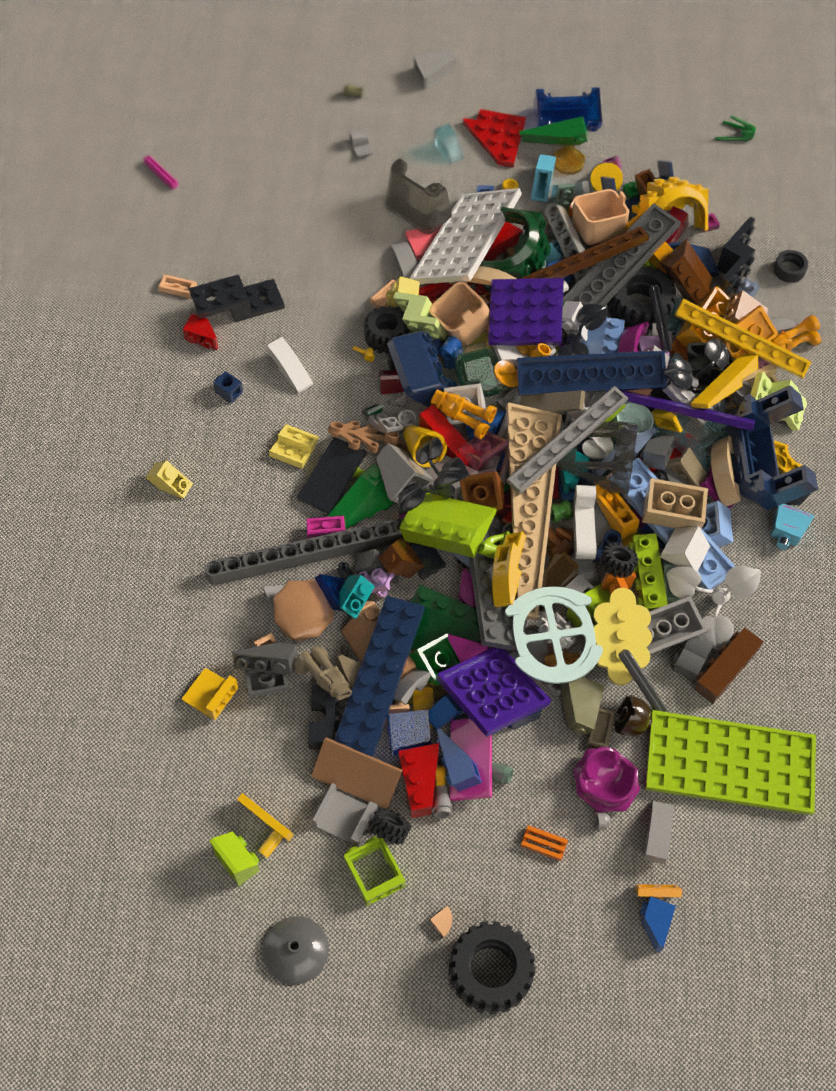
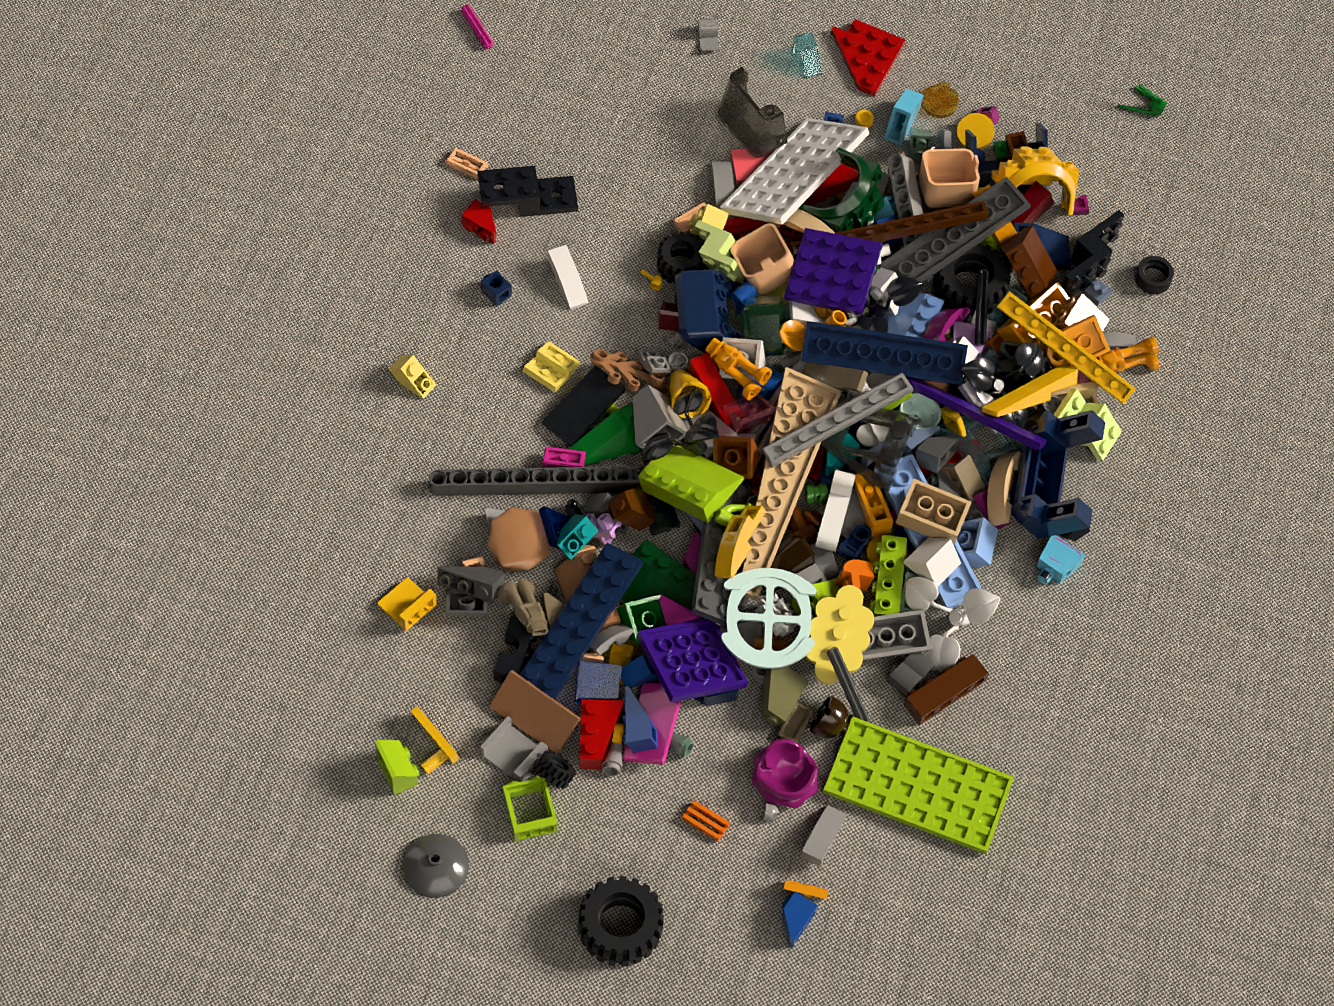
camera: 10 degrees right, 0 degrees up
(373, 410) = (647, 344): dark green slope -> none
(442, 921) = (585, 871): light nougat tile -> none
(558, 109) = (952, 43): clear blue windscreen -> none
(561, 133) = (944, 68): green wedge -> none
(619, 560) = (855, 549): black tyre -> none
(784, 460) = (1074, 487): yellow tile -> none

